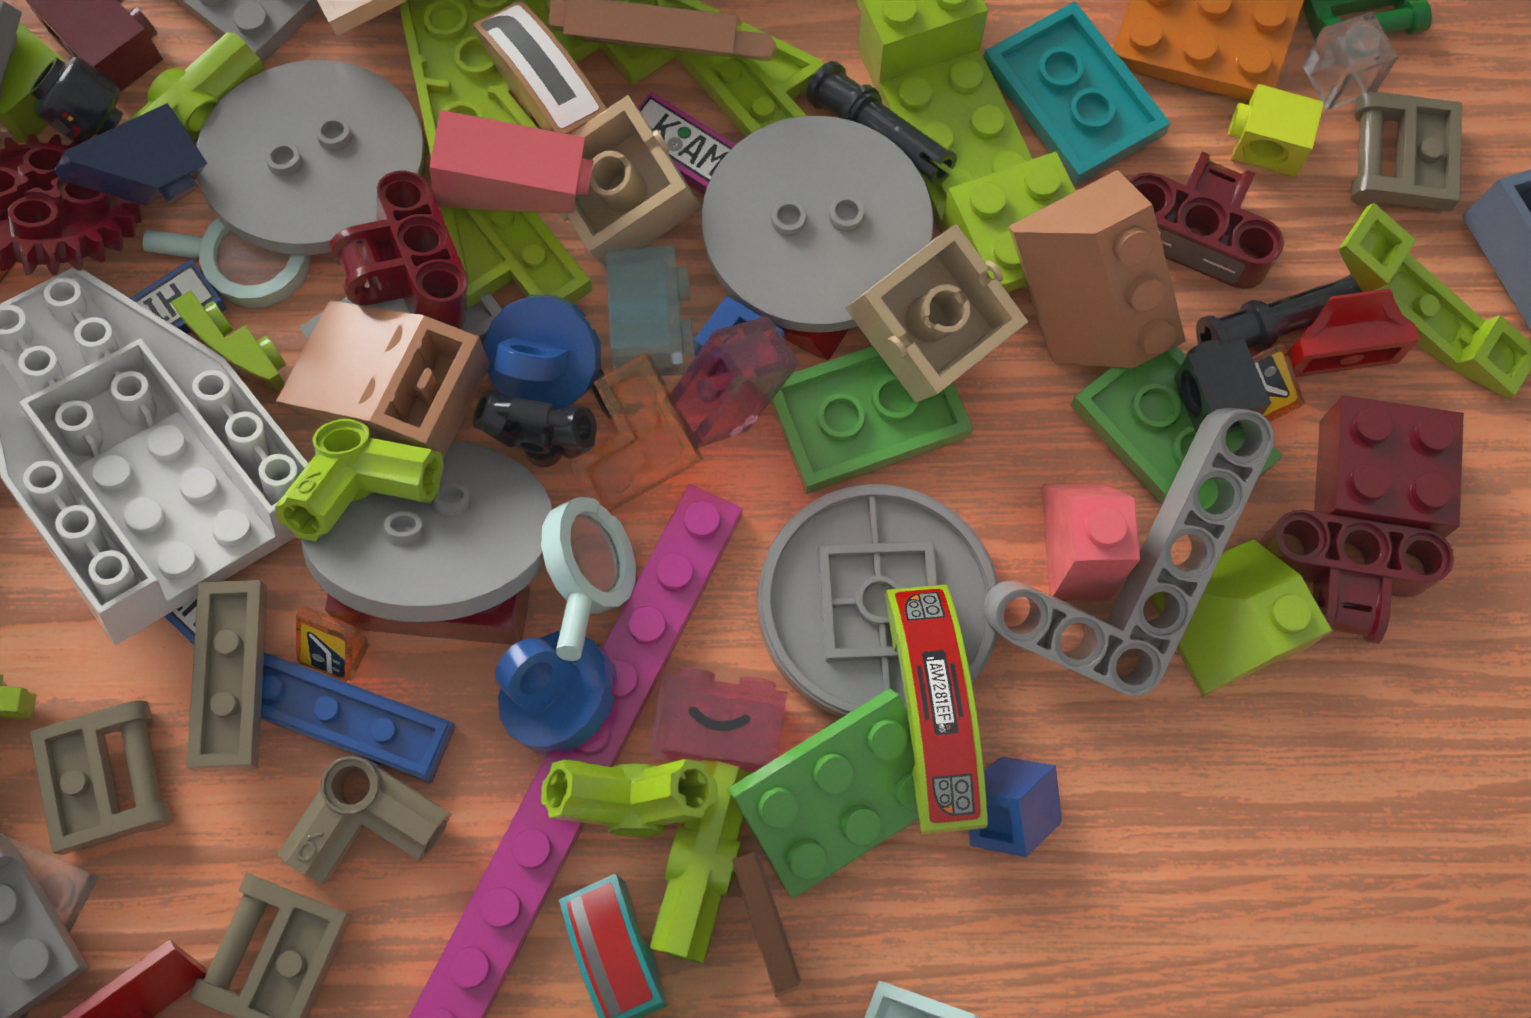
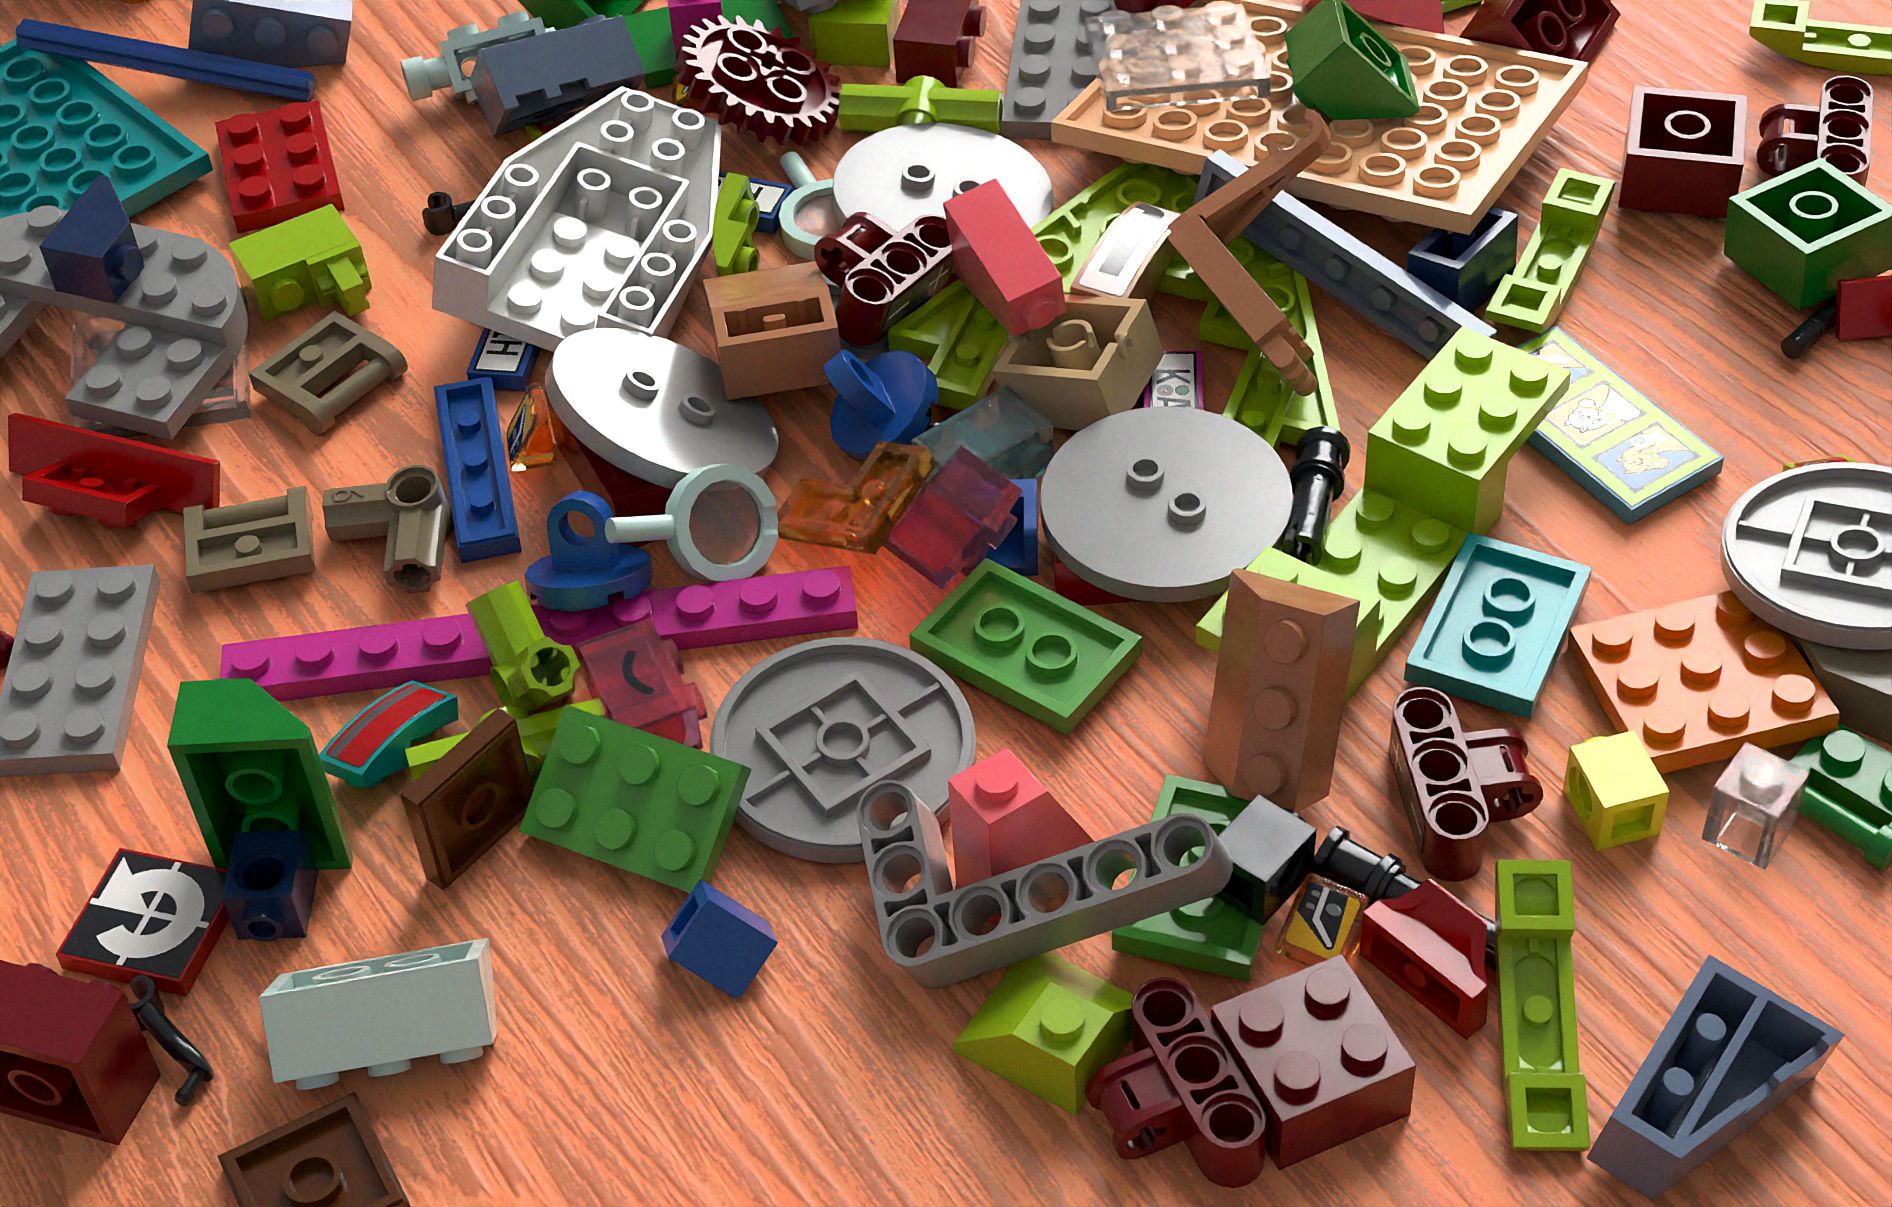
camera: 60 degrees right, 25 degrees down
(76, 99) = (860, 46): black head -> none
(137, 160) = (830, 92): dark blue slope -> none
(227, 676) = (454, 380): dark tan plate -> none
(351, 468) = (662, 324): lime piece -> none
(536, 427) = (800, 426): black piece -> none
(937, 314) = (1129, 599): tan brick -> none
(939, 709) = (749, 800): slope -> none
(1426, 151) = (1732, 925): dark tan plate -> none

